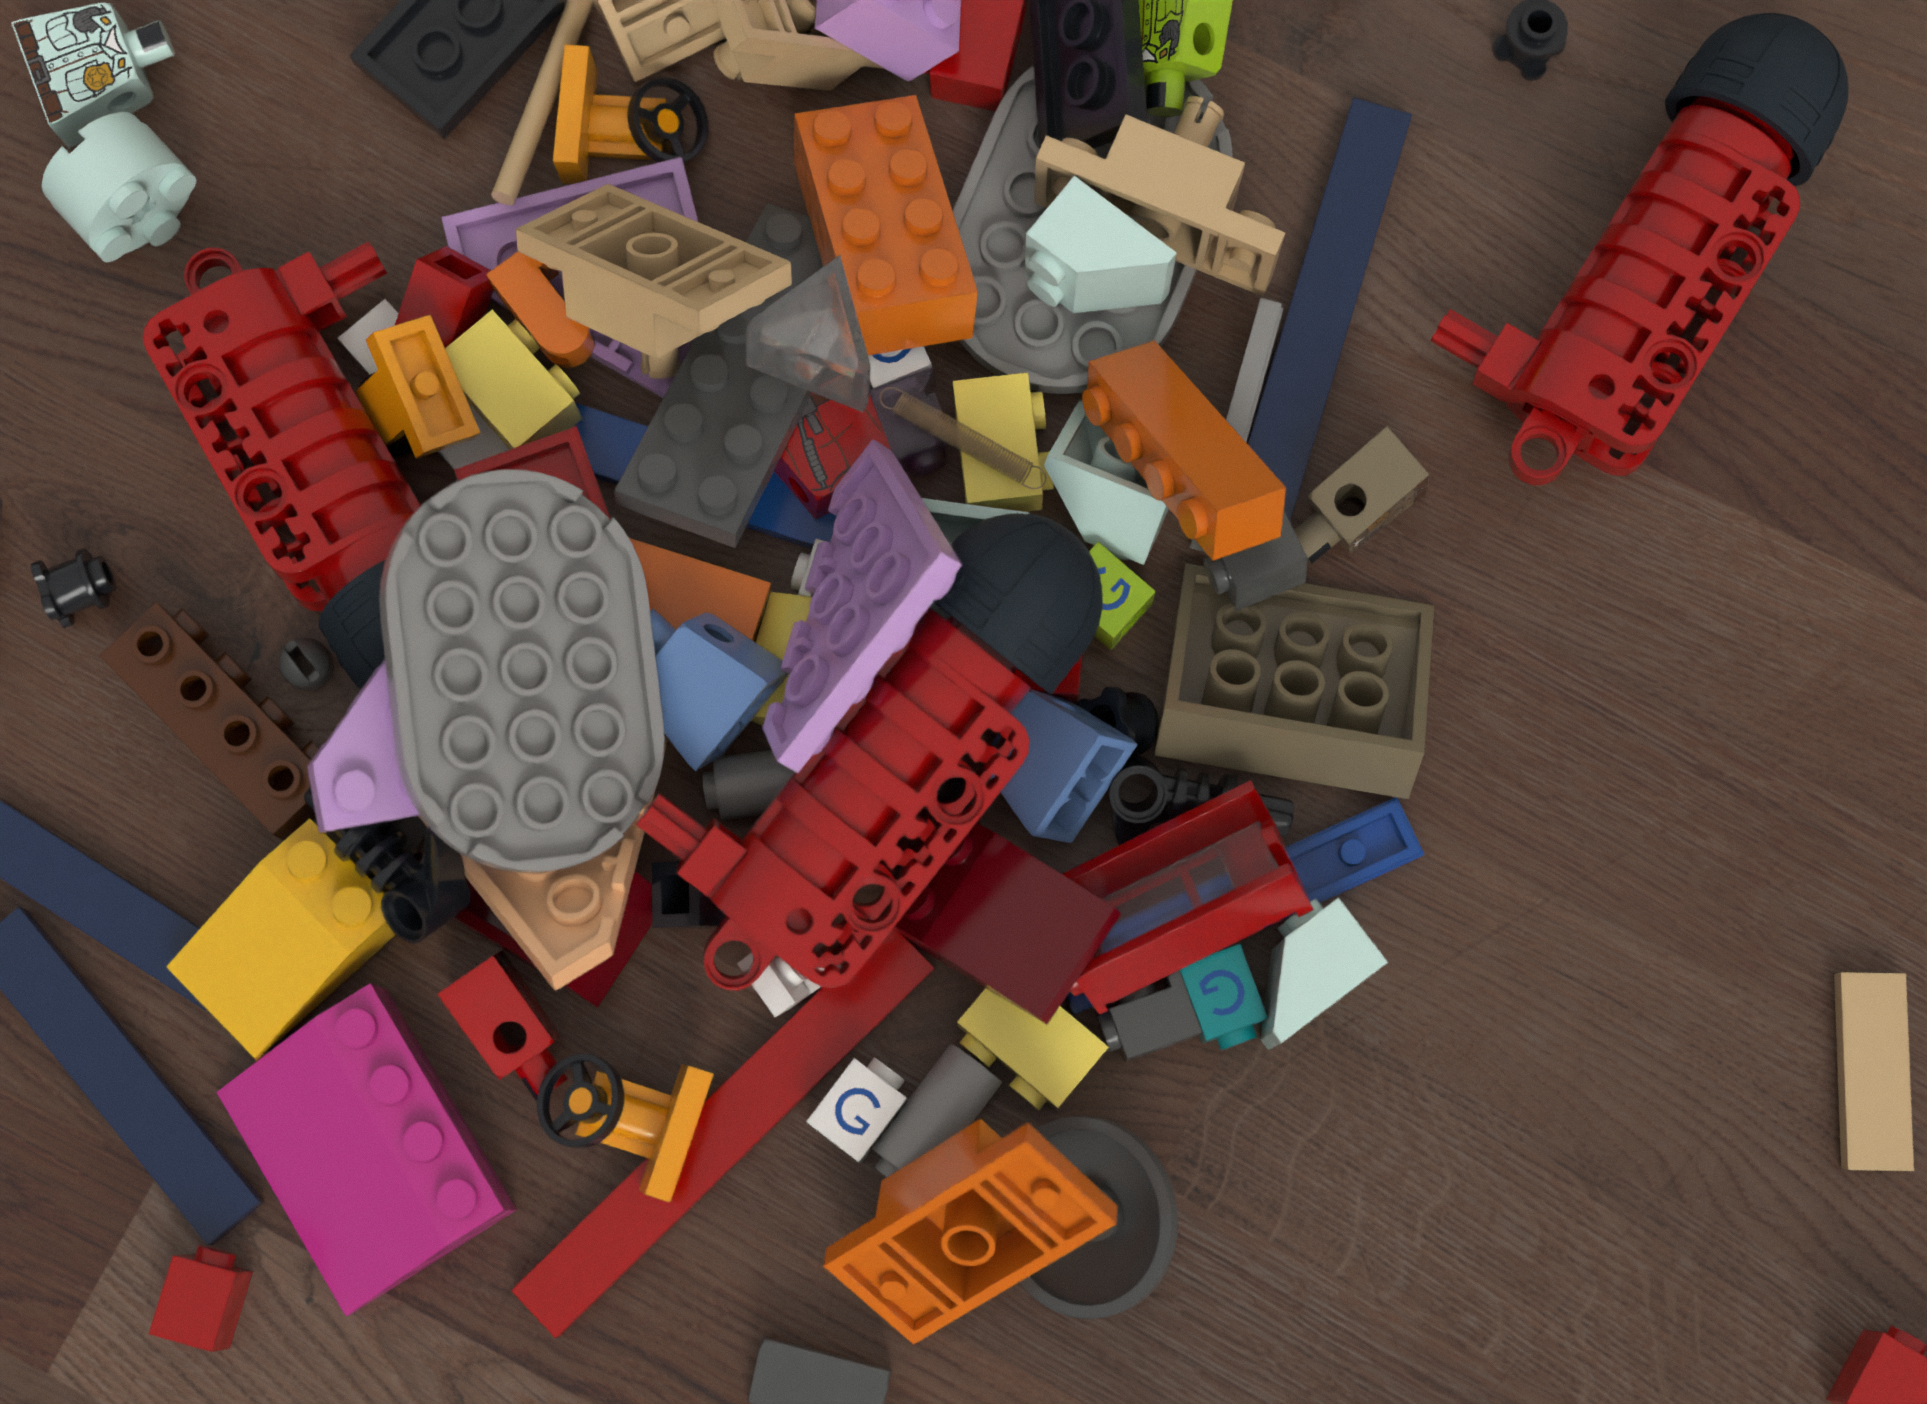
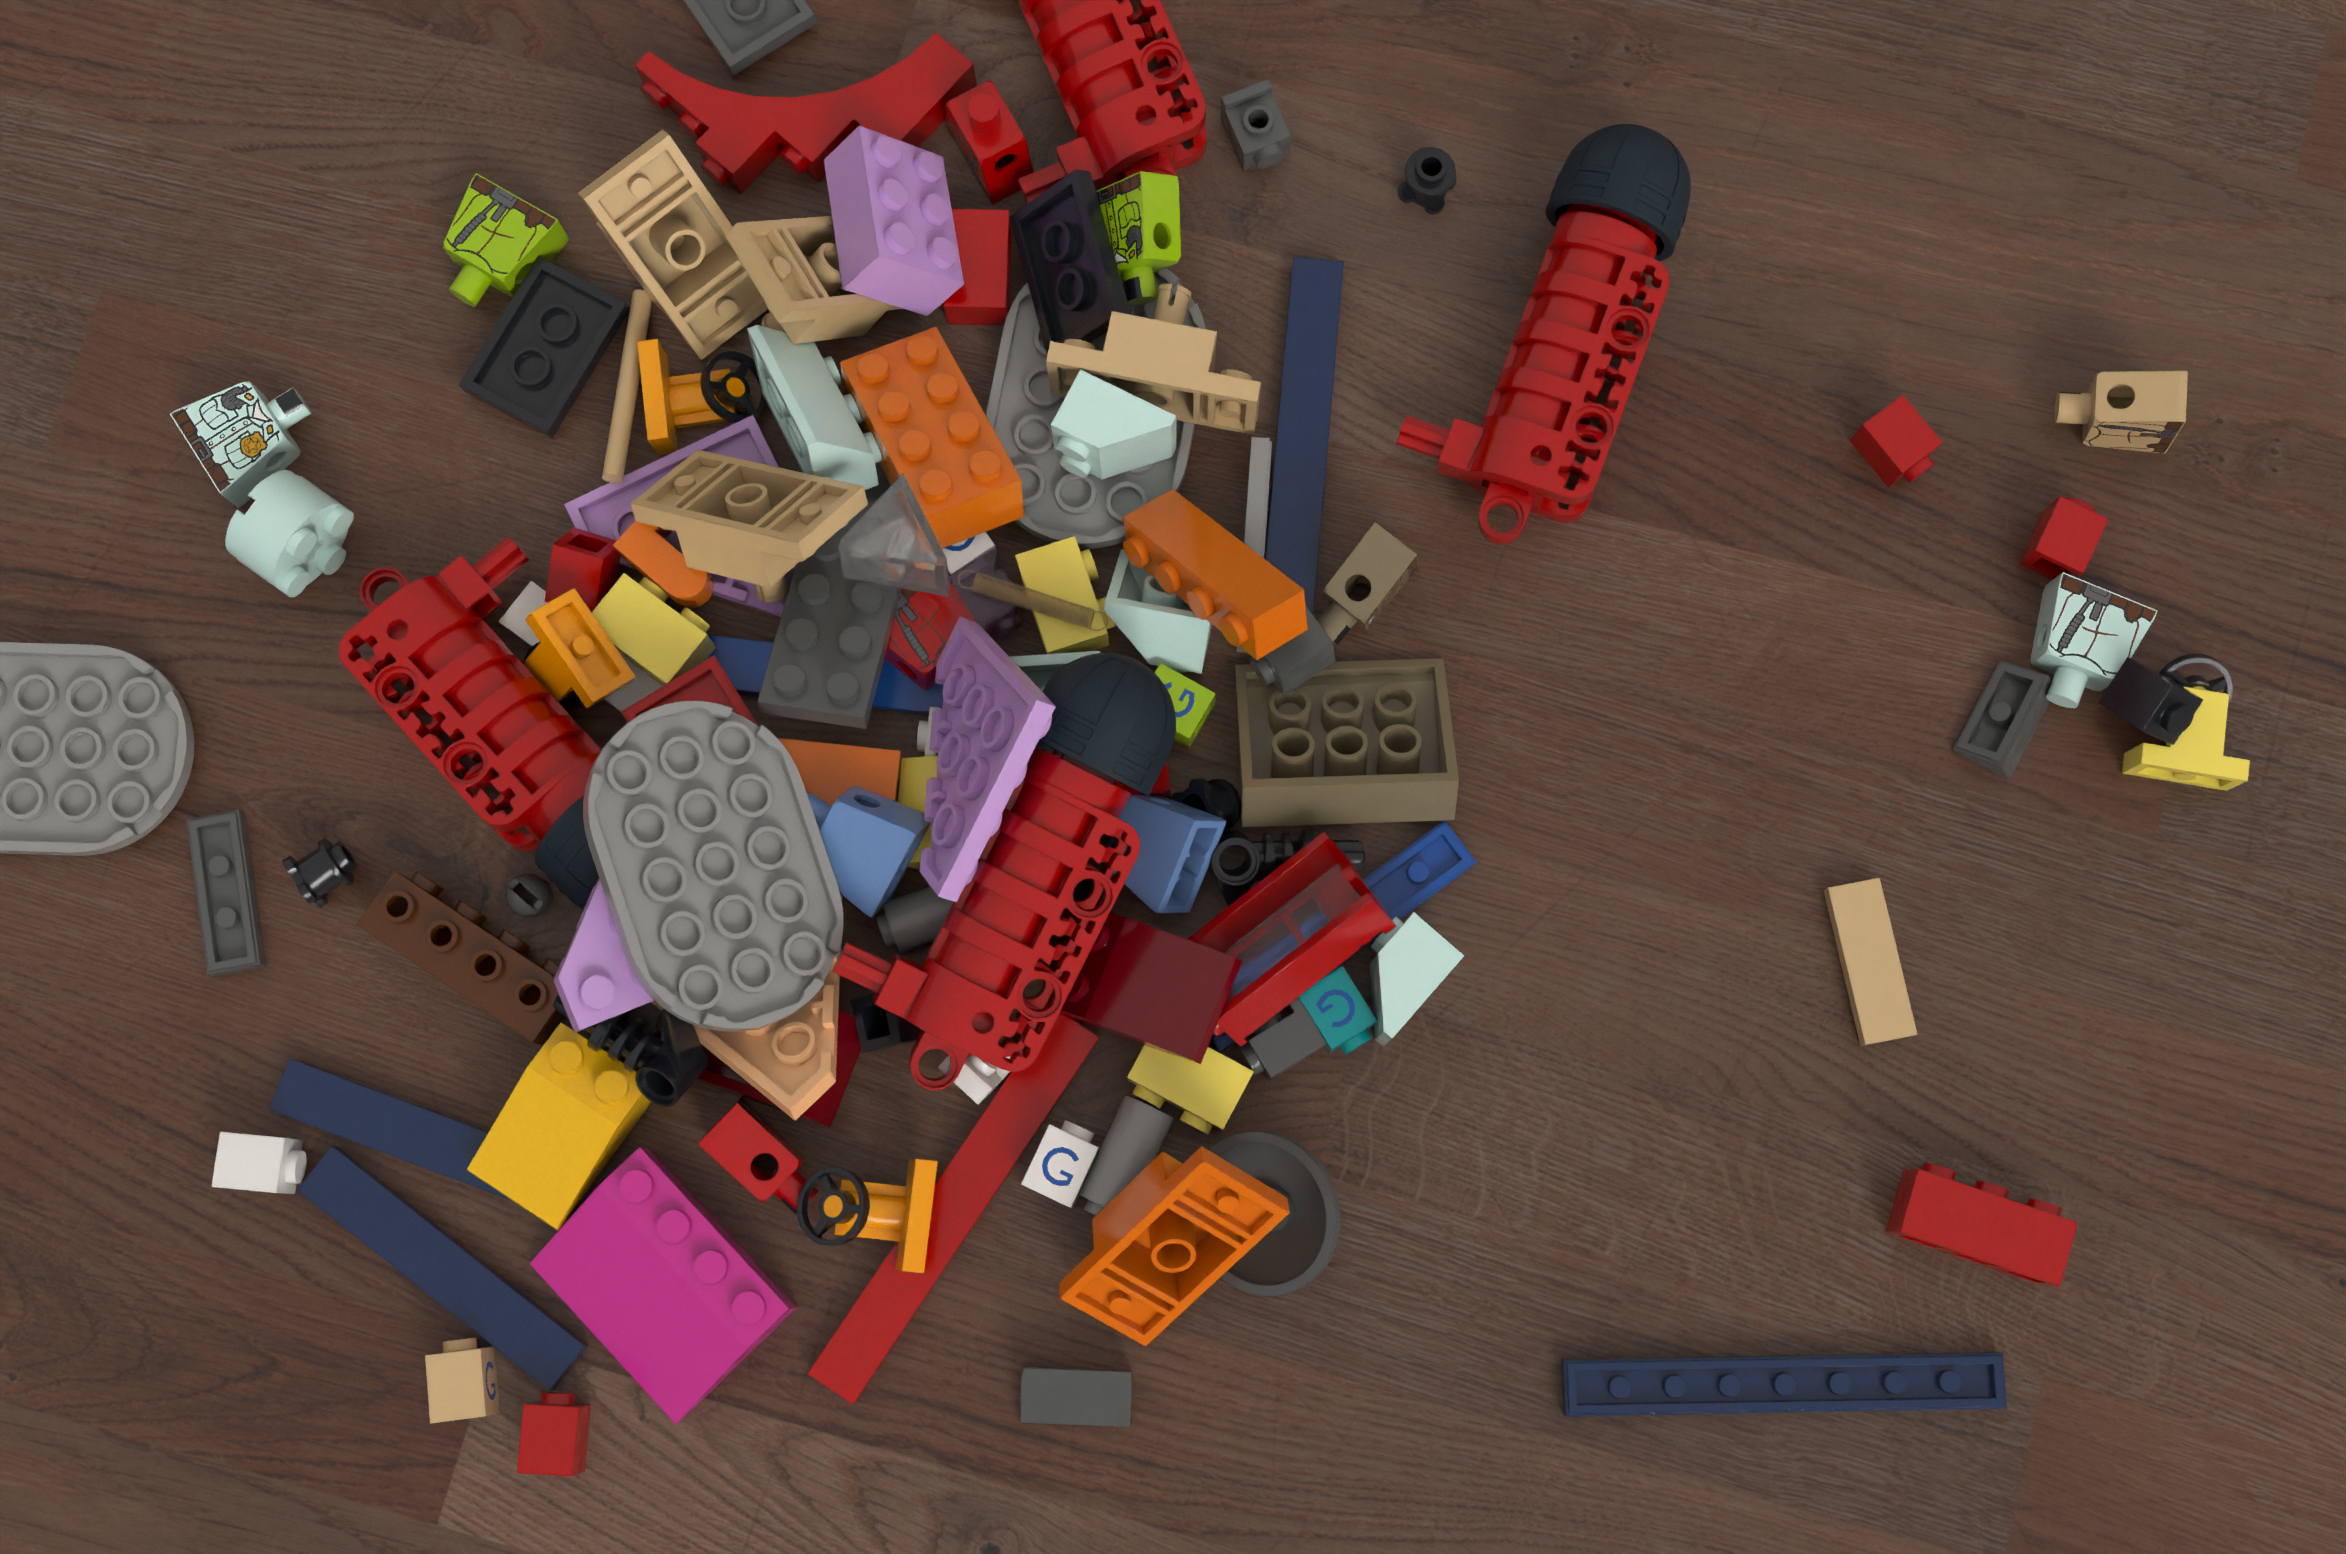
camera: 15 degrees left, 0 degrees up
(109, 1213) = (462, 1381): none -> tan brick
(750, 162) = (811, 409): none -> light aqua slope

